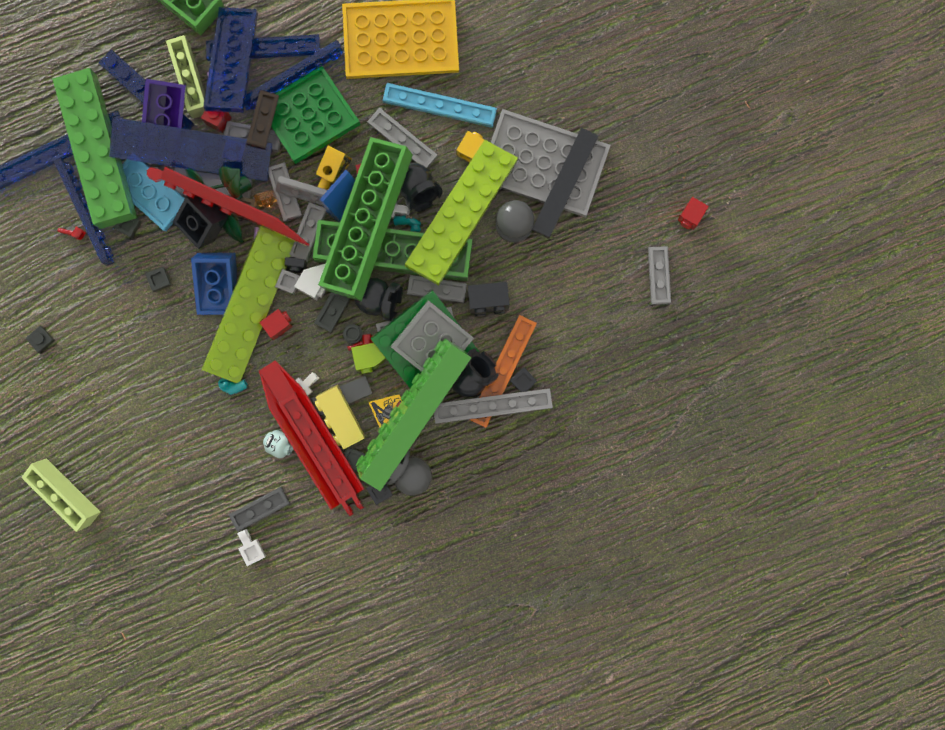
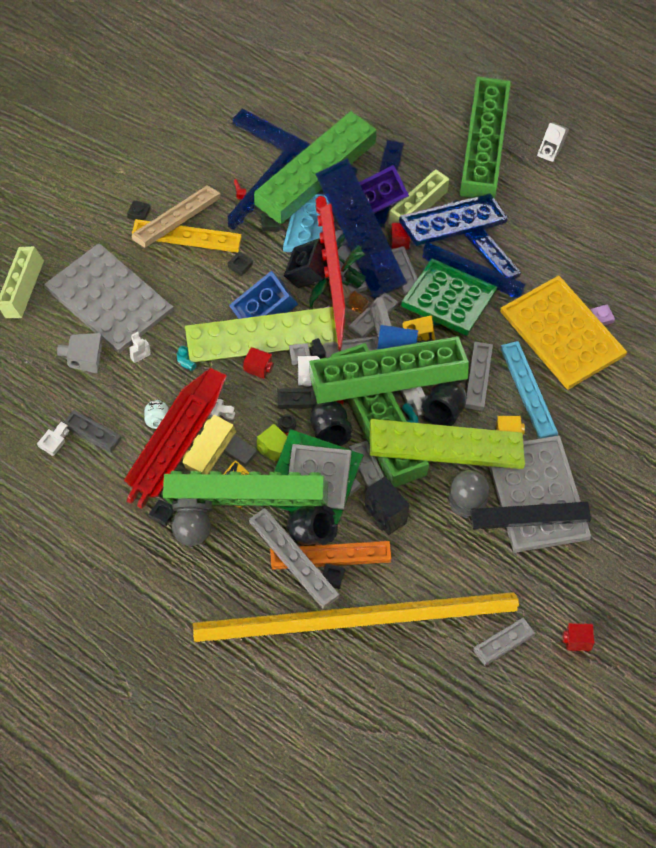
camera: 55 degrees right, 25 degrees down
(72, 310) = (175, 216): none -> tan plate
(97, 311) = (198, 237): none -> yellow plate
(123, 419) = (108, 297): none -> light grey plate
(172, 475) = (83, 351): none -> light grey torso
(199, 423) = (140, 349): none -> white plate
(262, 120) = (420, 264): dark brown tile -> none
(569, 384) = (355, 617): none -> yellow piece

